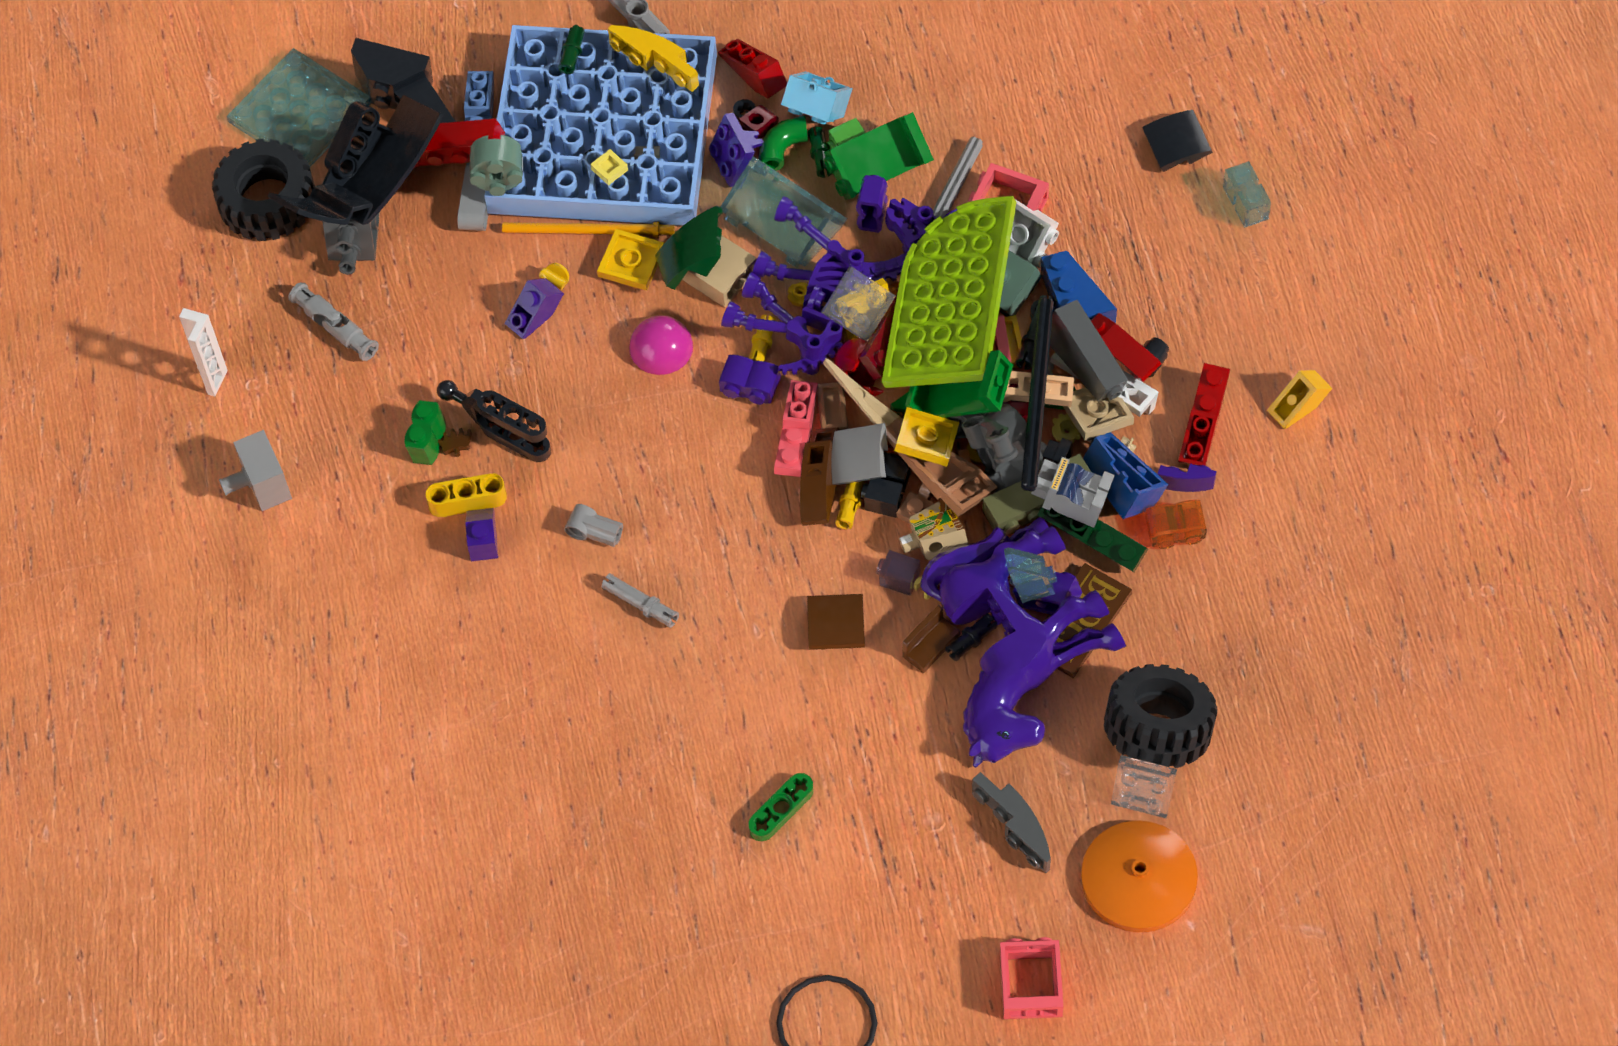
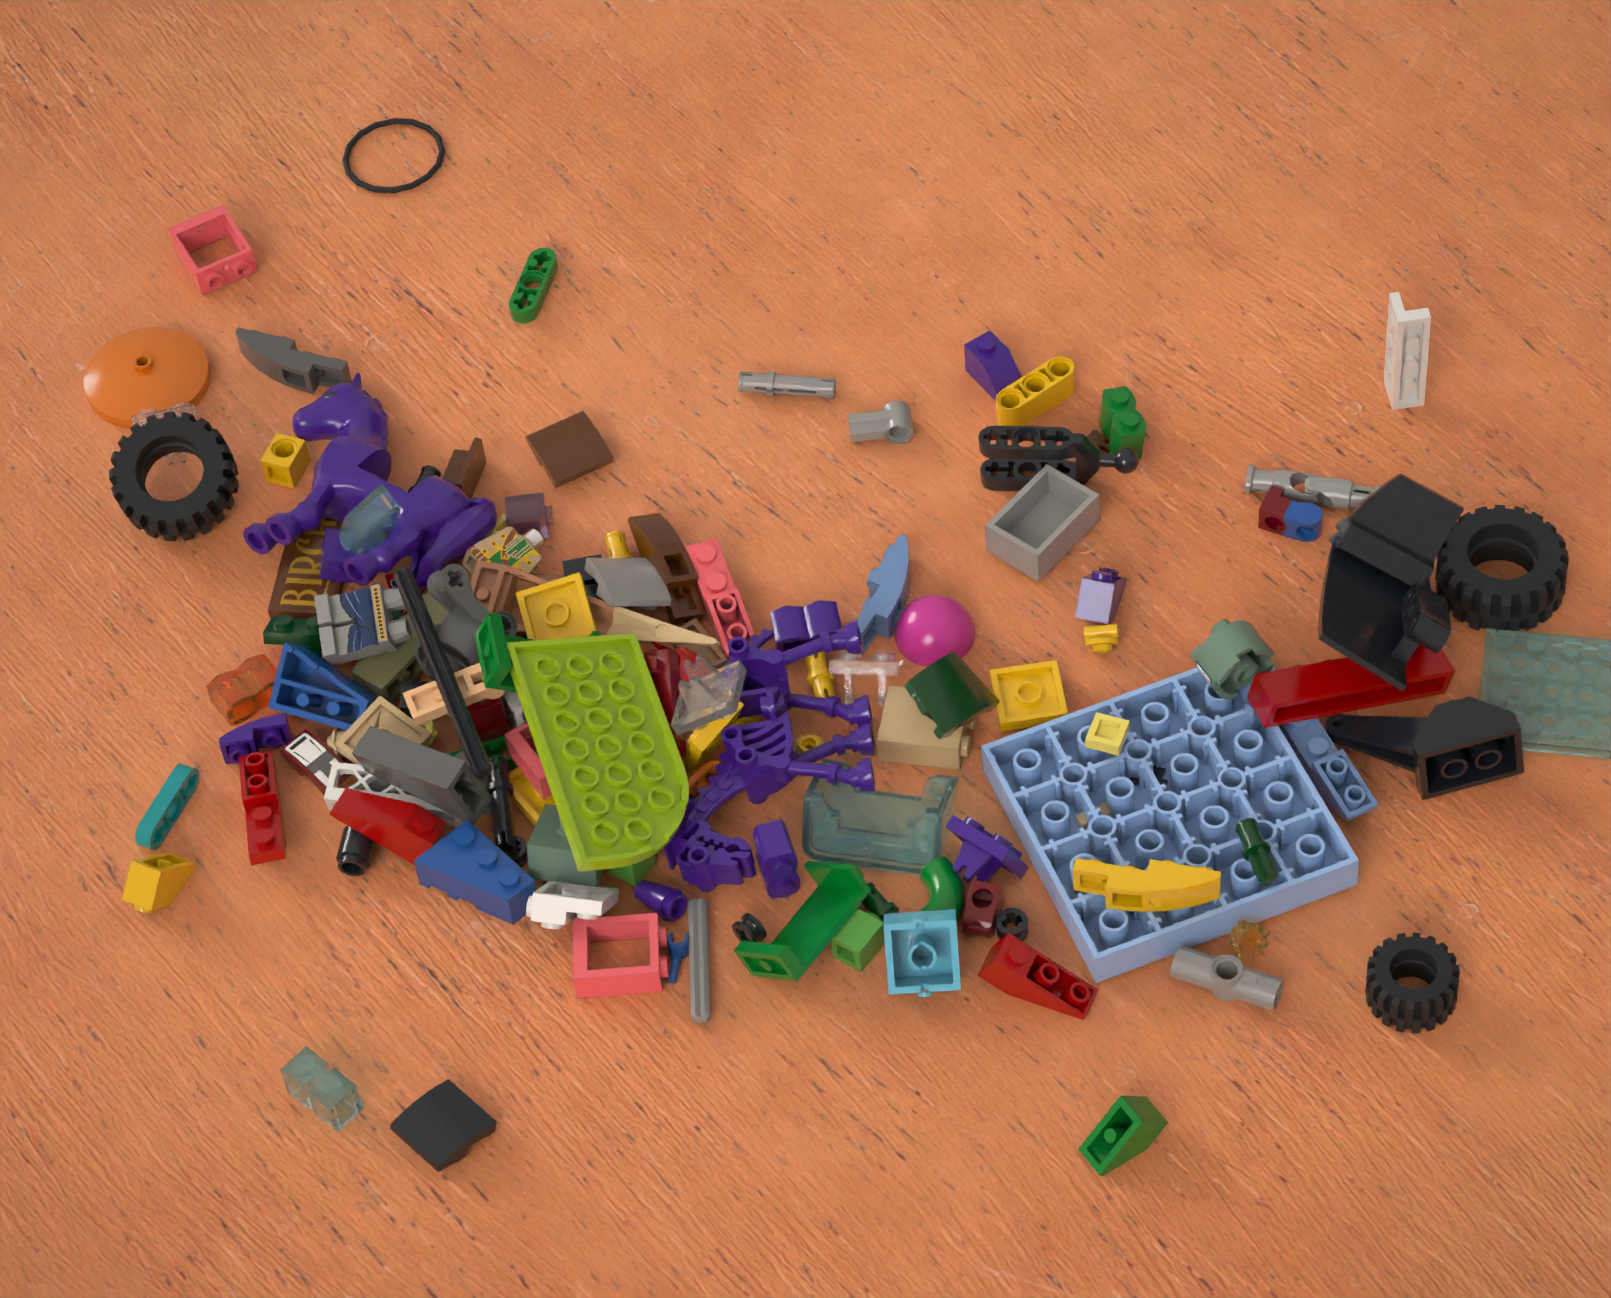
camera: 155 degrees right, 10 degrees down
(259, 471) = (1260, 308): light grey brick -> none
(370, 313) = (1290, 517): none -> leg
(538, 372) = (1042, 522): none -> light grey piece
(673, 380) = (888, 594): none -> medium blue slope
(714, 309) = (853, 664): none -> clear plate
(914, 179) = (749, 929): none -> black bush
(967, 190) = (677, 952): none -> blue hand
(1066, 711) = (285, 460): none -> yellow brick
(1150, 443) = (312, 758): none -> slope
(1271, 455) = (167, 806): none -> teal beam

